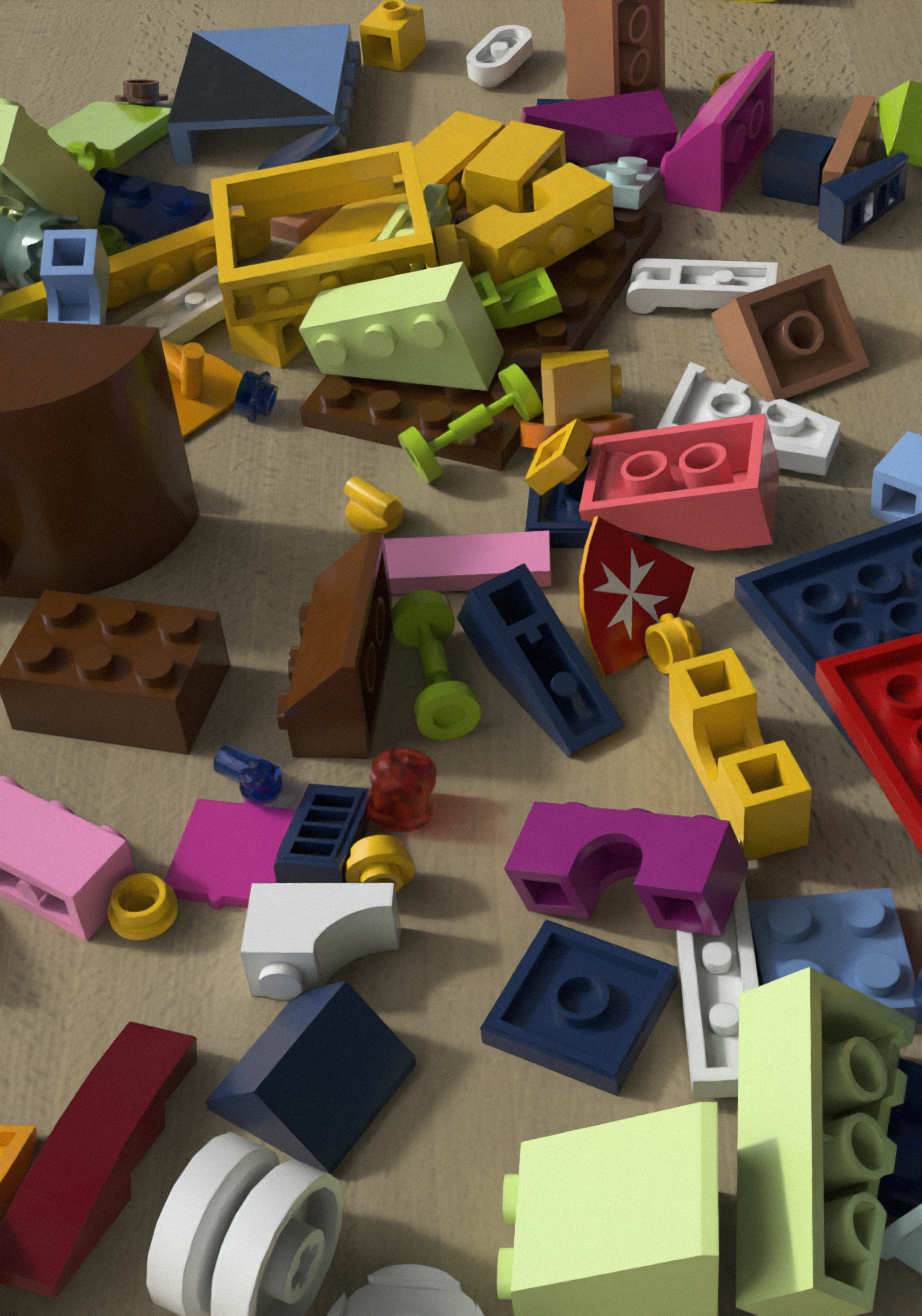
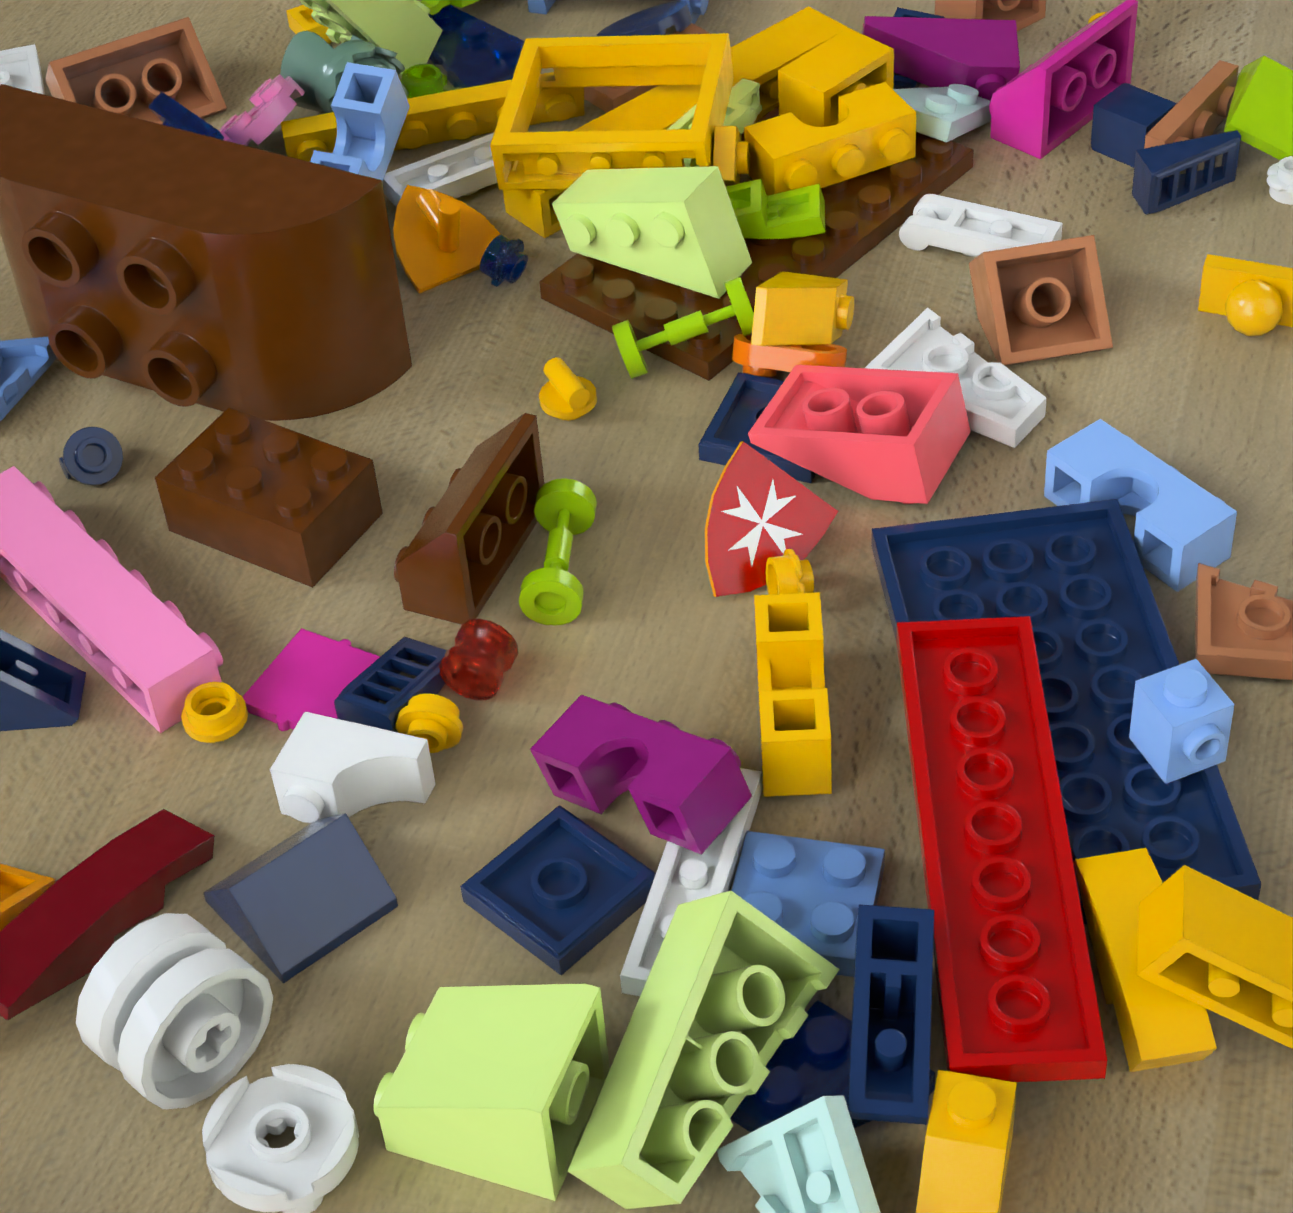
camera: 15 degrees right, 0 degrees up
(257, 778) = (357, 618): clear blue arm -> none
(464, 560) = (630, 461): bright pink tile -> none
(537, 660) = (652, 567): dark blue slope -> none
(560, 457) = (754, 378): yellow plate -> none

